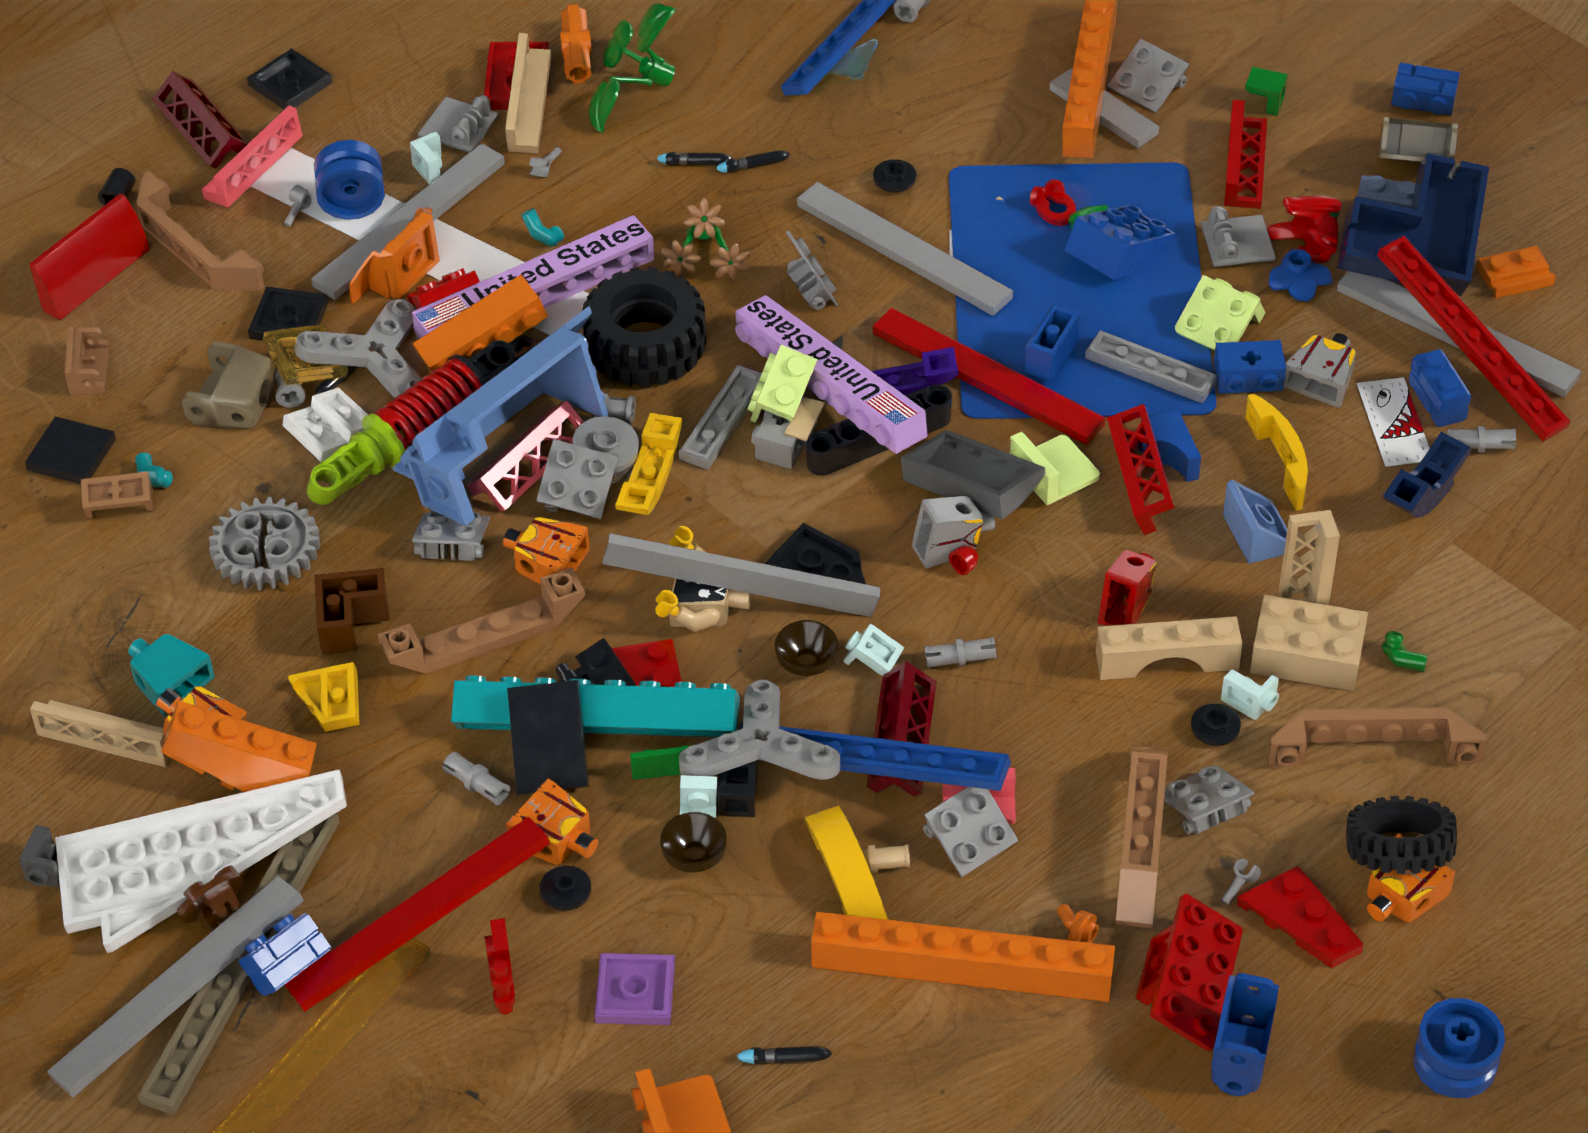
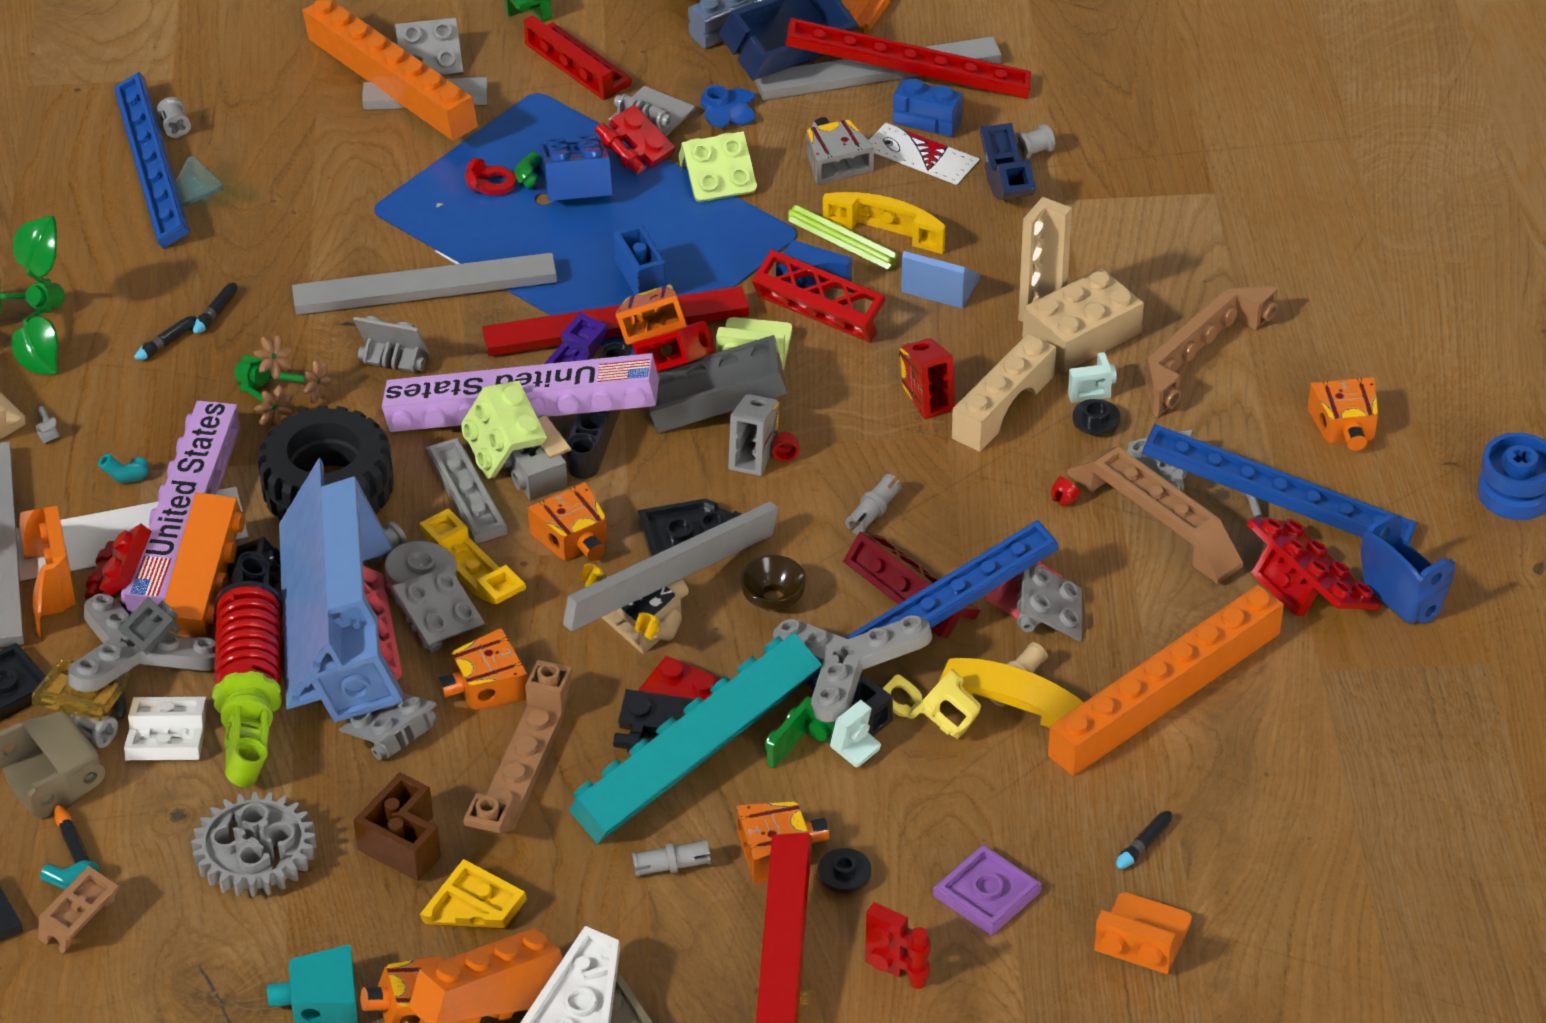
camera: 50 degrees left, 5 degrees down
(183, 452) = (71, 837): none -> black piece
(389, 343) = (149, 624): none -> dark grey bracket
(548, 736) = (695, 780): black tile -> none
(689, 831) = (891, 753): dark brown piece -> none
(746, 495) = (570, 524): none -> orange torso
(782, 826) = (948, 689): none -> light yellow piece
(873, 649) = (815, 546): light aqua bracket -> none
(894, 175) = (342, 241): black piece -> none
(982, 424) = (686, 343): none -> red torso
(1002, 386) = (651, 314): none -> orange torso
(1081, 927) = (1208, 601): orange plate -> none
(1107, 759) = (1066, 490): none -> red hinge
(1151, 366) = (718, 233): light grey tile -> none
(1196, 249) = (640, 135): none -> red plate
(1235, 437) = (843, 237): none -> lime axle
(1249, 366) = (787, 183): blue brick -> none
(1256, 895) = (1266, 483): none -> blue tile
(1304, 914) = (1342, 478): red wing -> none
(1313, 223) = (704, 64): red hair -> none
(1399, 655) = (1142, 287): green arm -> none
(1401, 854) = (1320, 397): black tyre -> none
(1485, 438) = (1002, 115): light grey pin -> none
(1486, 477) = (1035, 141): none -> light grey bush

